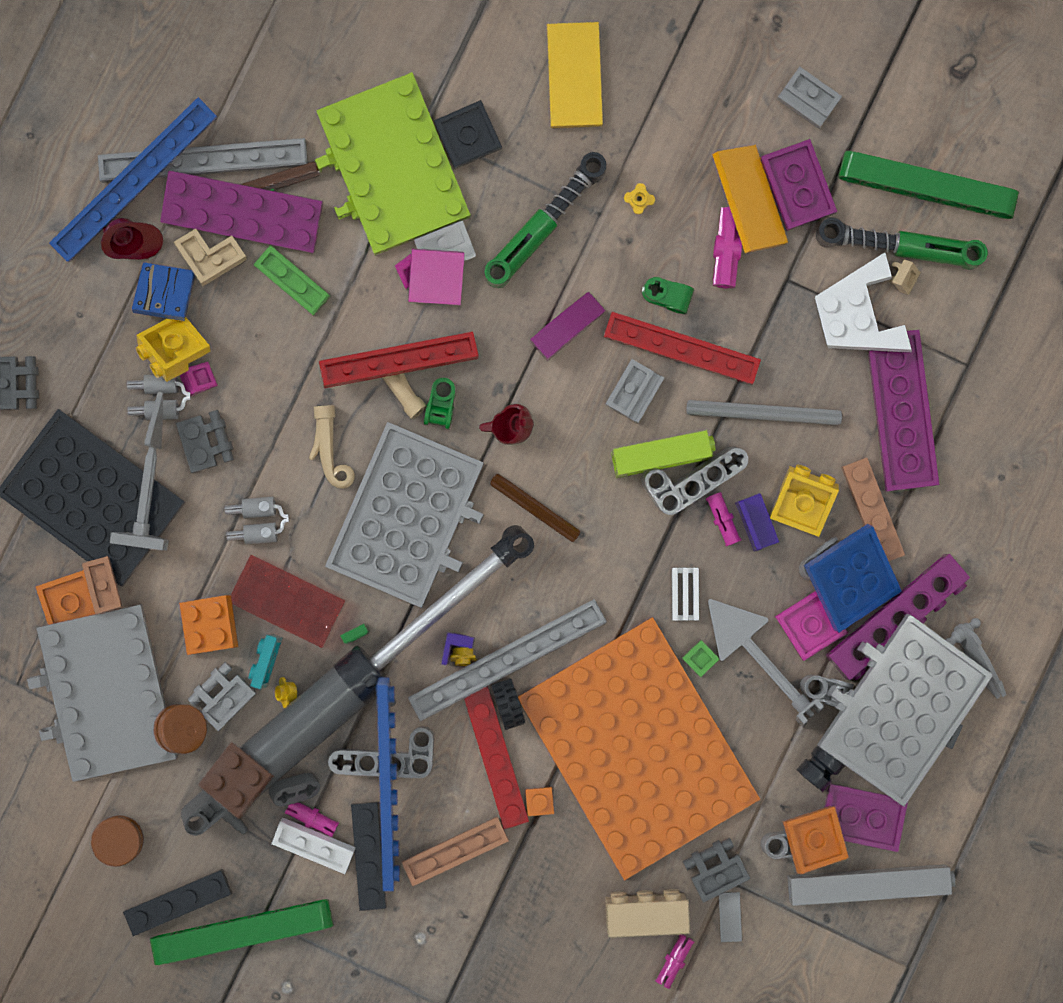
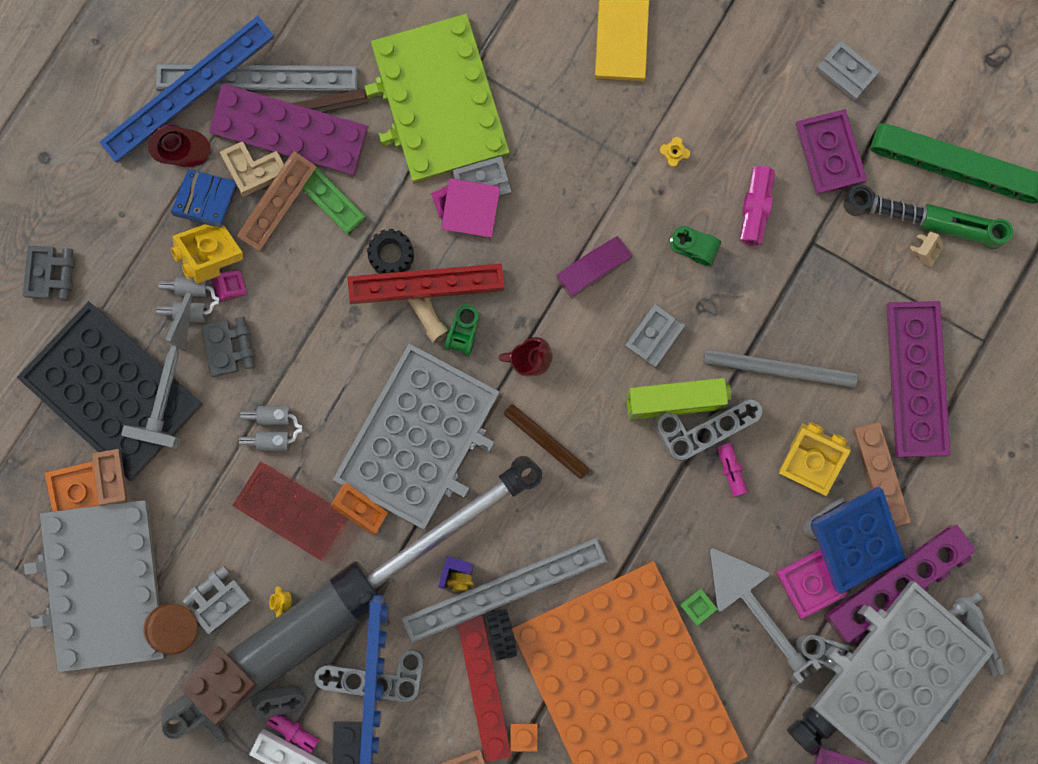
camera: 10 degrees right, 5 degrees down
(117, 840) = (95, 736): dark orange head -> none
(208, 624) = (211, 527): orange plate -> none
(237, 288) = (276, 201): none -> nougat plate
(261, 671) = (267, 558): teal plate -> none
(324, 443) = (345, 359): tan plant -> none
(345, 322) = (383, 239): none -> black tyre
(354, 593) = (359, 509): none -> orange plate
(355, 633) = (355, 549): green tile -> none
(468, 134) = (514, 76): black plate -> none
(543, 222) = (579, 165): piece -> none
(682, 348) = (705, 298): red plate -> none
(685, 571) = (698, 543): white tile -> none
(750, 198) = (783, 160): light orange tile -> none
(757, 522) = (765, 476): dark purple panel -> none
(849, 315) = (872, 281): white wing -> none

